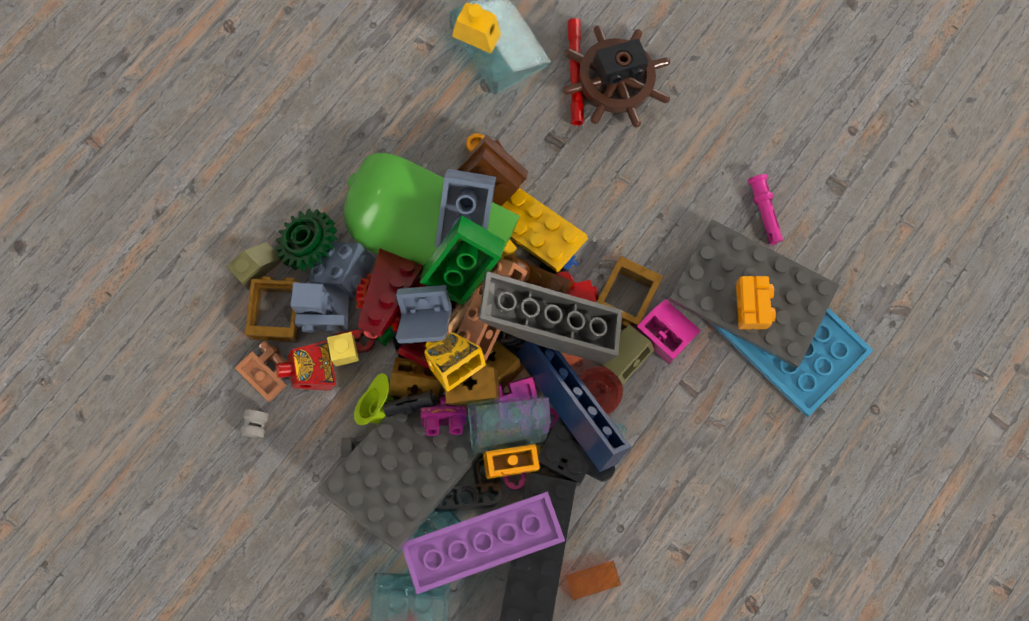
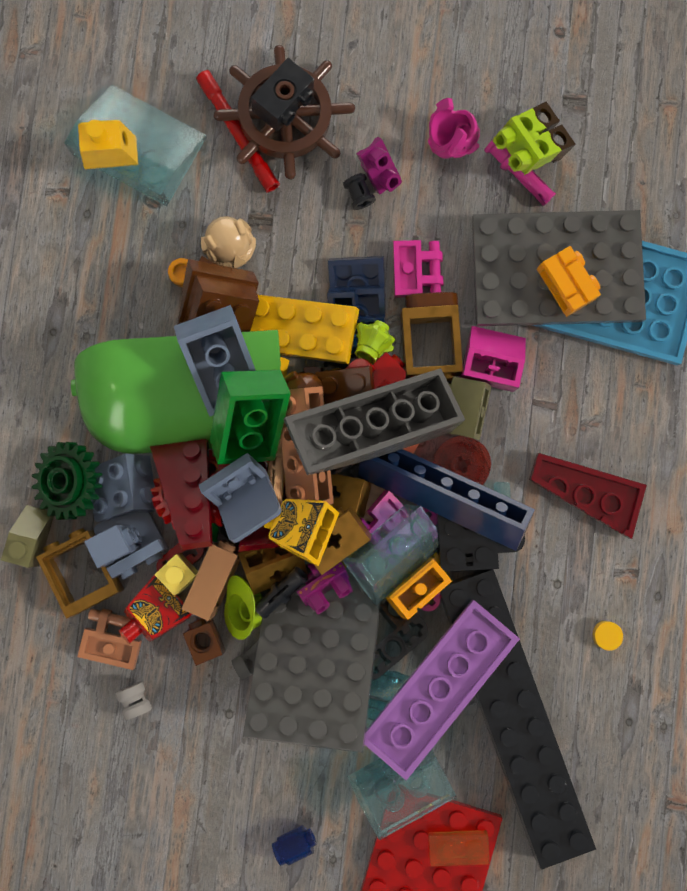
camera: 30 degrees left, 10 degrees up
(303, 604) = (294, 845): none -> clear blue brick
(335, 421) = (199, 653): none -> reddish brown brick
(361, 369) = (212, 580): none -> medium nougat window
(523, 141) = (228, 242): none -> tan helmet
(585, 266) = (373, 340): none -> lime rock
(593, 580) = (560, 651): clear orange plate -> none
(602, 225) = (359, 284): none -> dark blue slope
(636, 590) = (607, 635): none -> yellow tile
(638, 159) = (359, 191): none -> black bush
(641, 233) = (408, 267): none -> dark pink plate
(647, 262) = (431, 299): none -> reddish brown beam
(662, 149) = (379, 166): none -> magenta hips
(689, 476) = (594, 492): none -> dark red wing
(730, 154) = (452, 131): none -> dark pink helmet
(785, 192) = (532, 140): none -> lime hips

